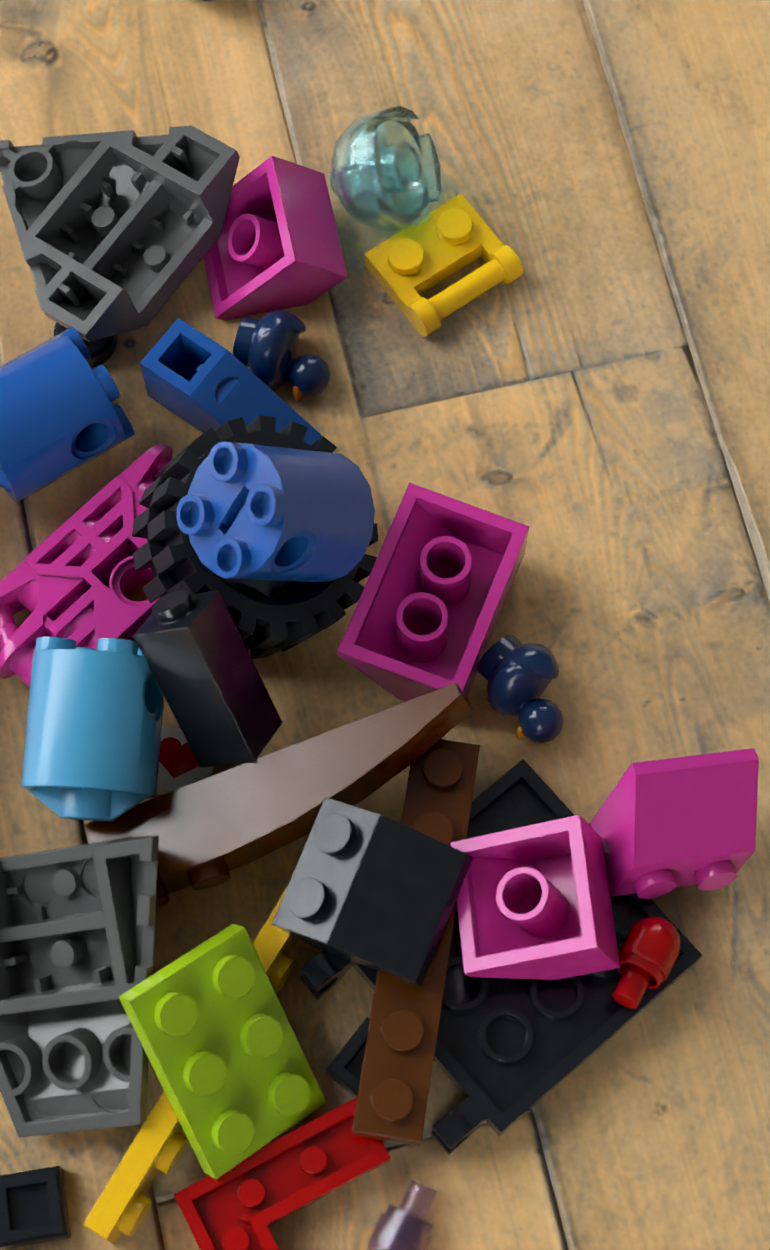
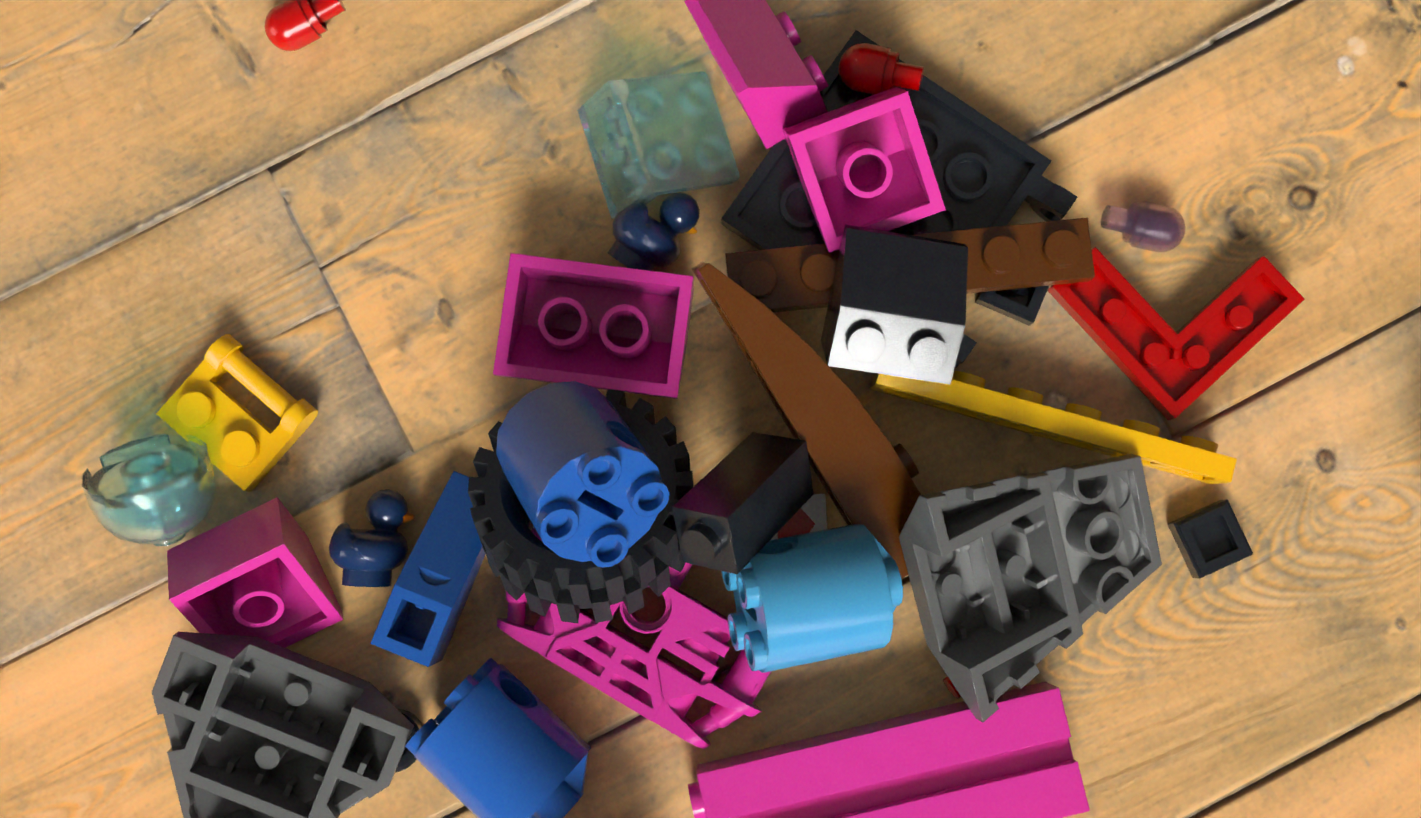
camera: 105 degrees left, 15 degrees up
(223, 1050) = (1058, 403): lime plate -> none
(621, 714) = (656, 138): none -> clear light blue bracket

